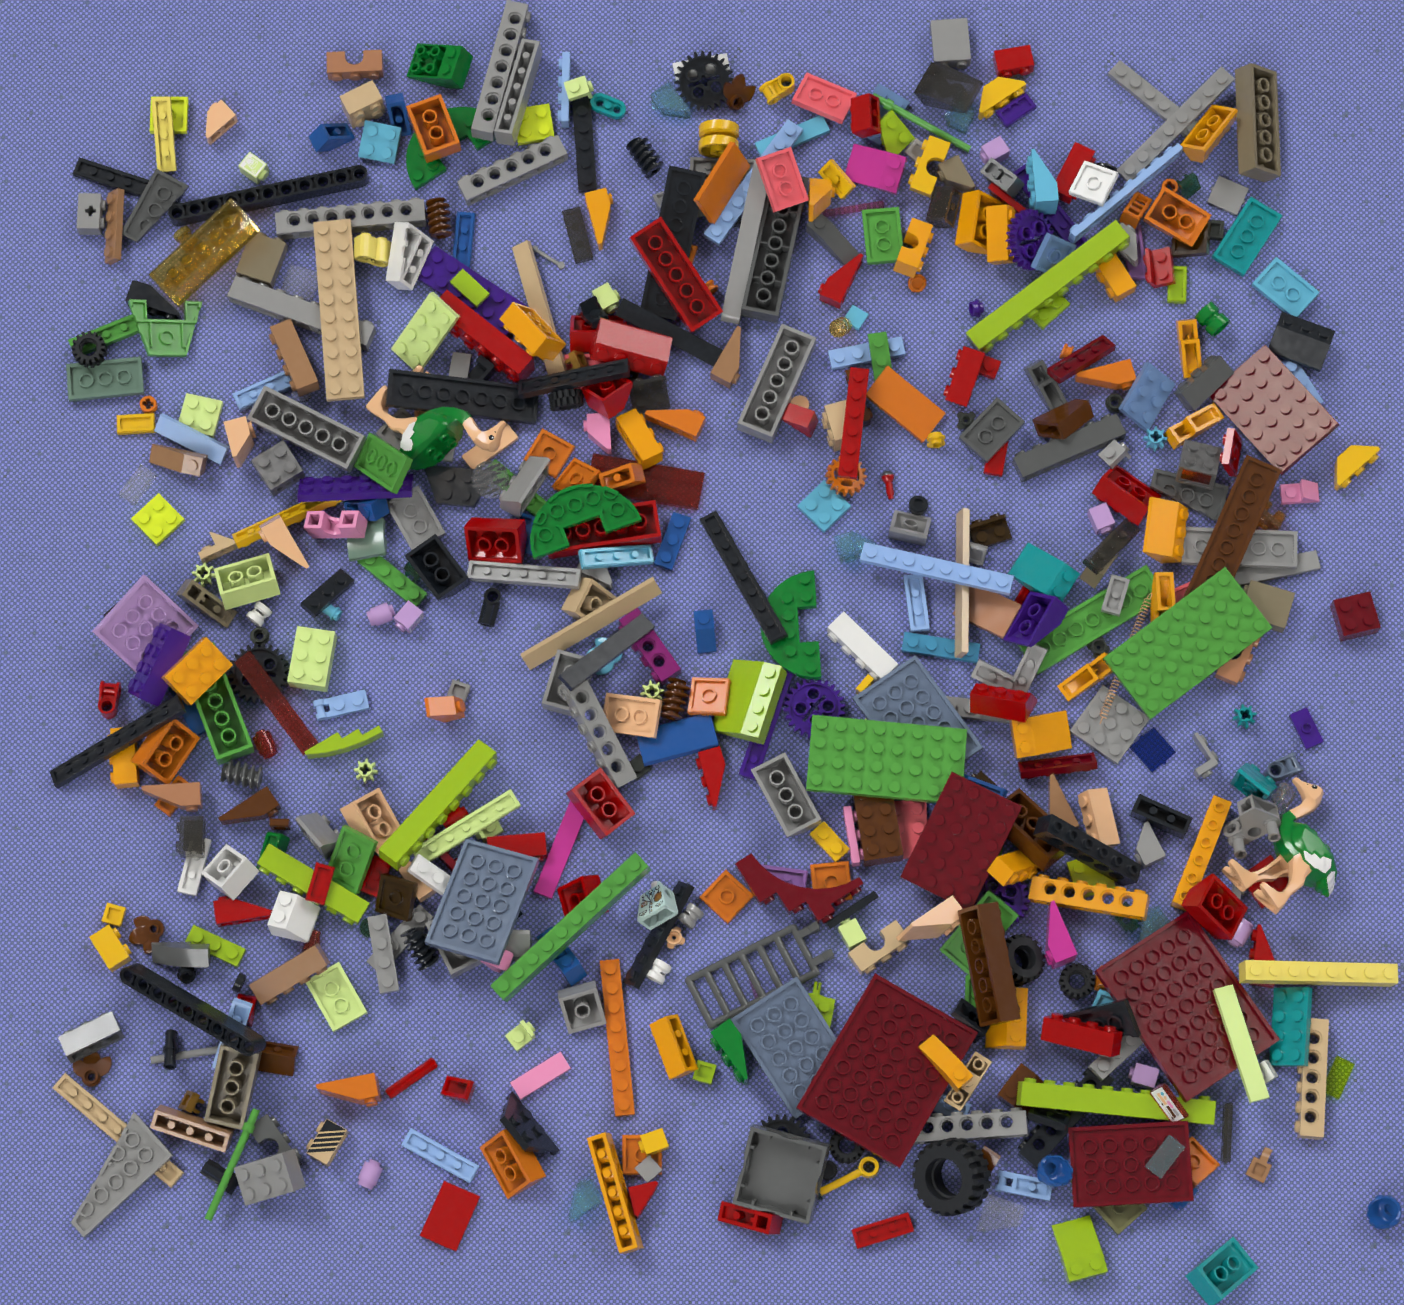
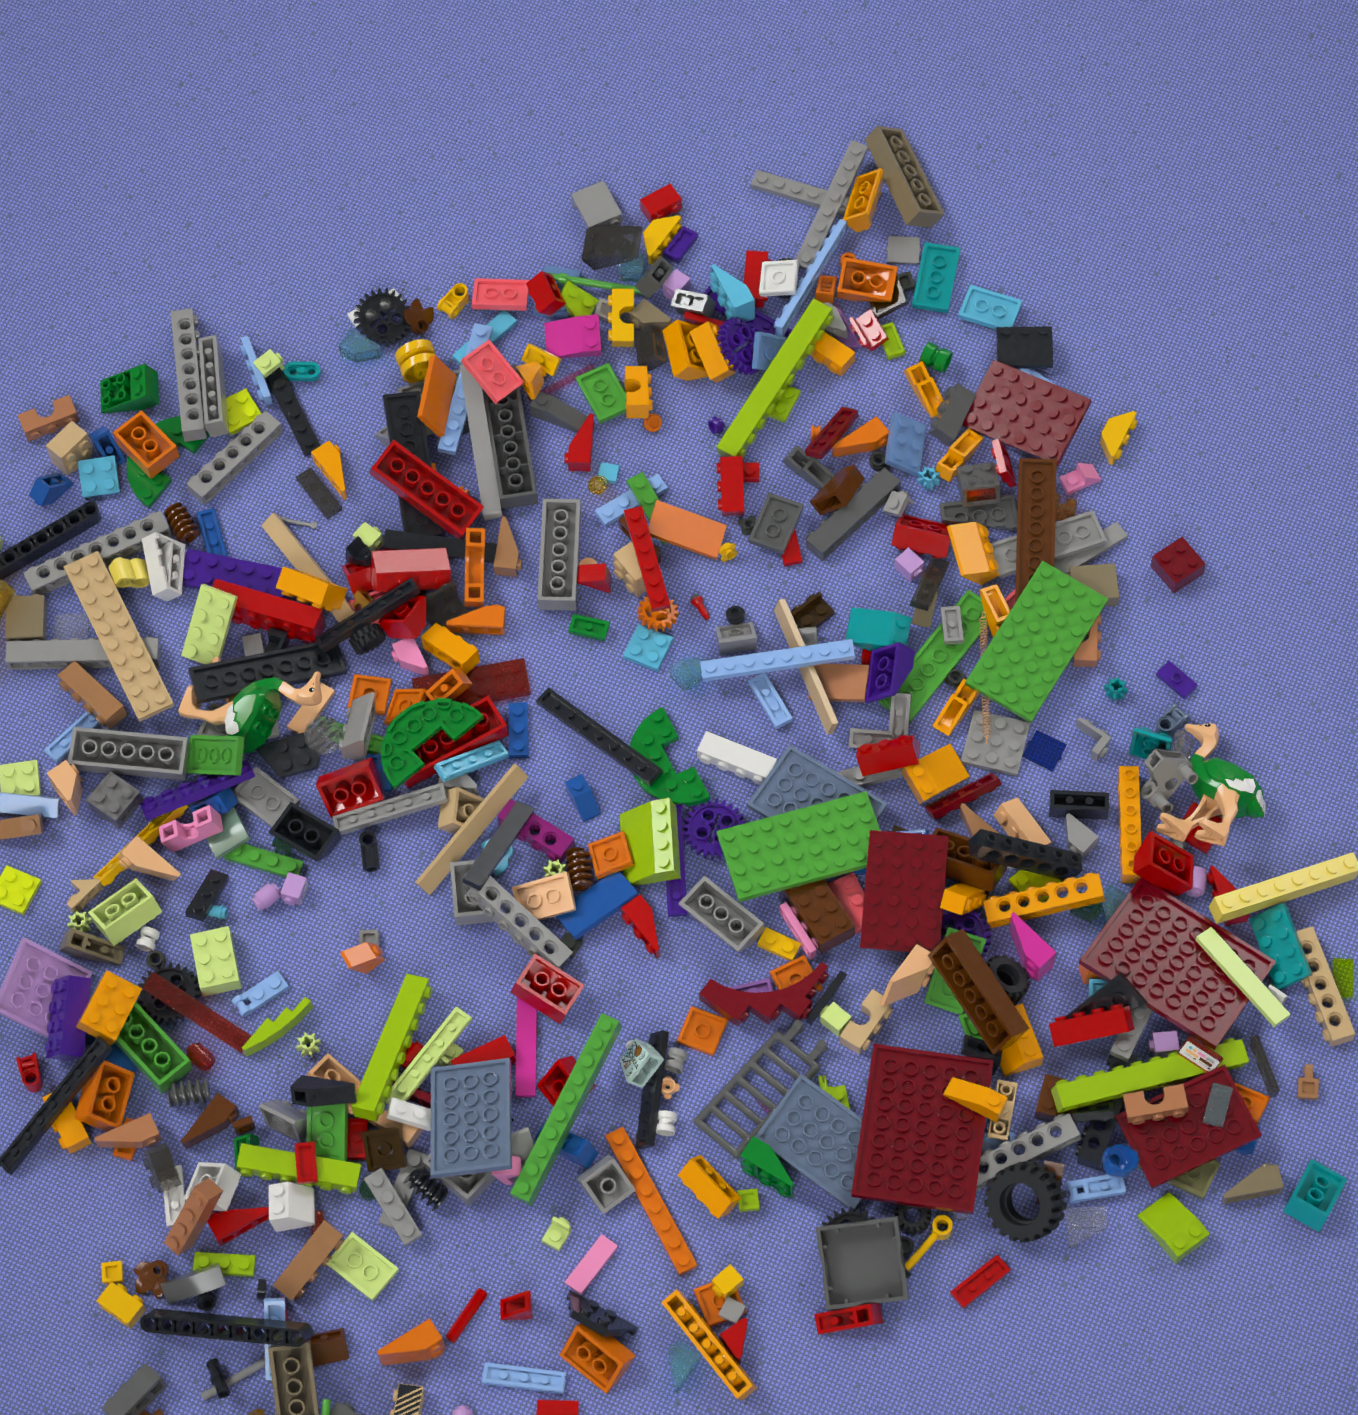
camera: 20 degrees left, 10 degrees down
(201, 895) = (193, 1216): none -> nougat brick
(354, 825) = (317, 1091): none -> black slope
(469, 288) = (235, 573): lime tile -> none
(644, 157) = (354, 402): black piece -> none
(692, 367) = (474, 567): none -> orange arch
(776, 466) = (589, 627): none -> green plate
(865, 683) = (754, 785): yellow plate -> none
(937, 647) = (806, 733): dark azure plate -> none
(975, 136) = (654, 277): none -> dark grey brick
(1088, 981) = (1060, 993): black tyre -> none
(1125, 1138) = (1139, 1109): none -> nougat arch
(1176, 1241) = (1260, 1183): none -> dark tan slope
(1189, 185) = (865, 251): clear green tile -> none

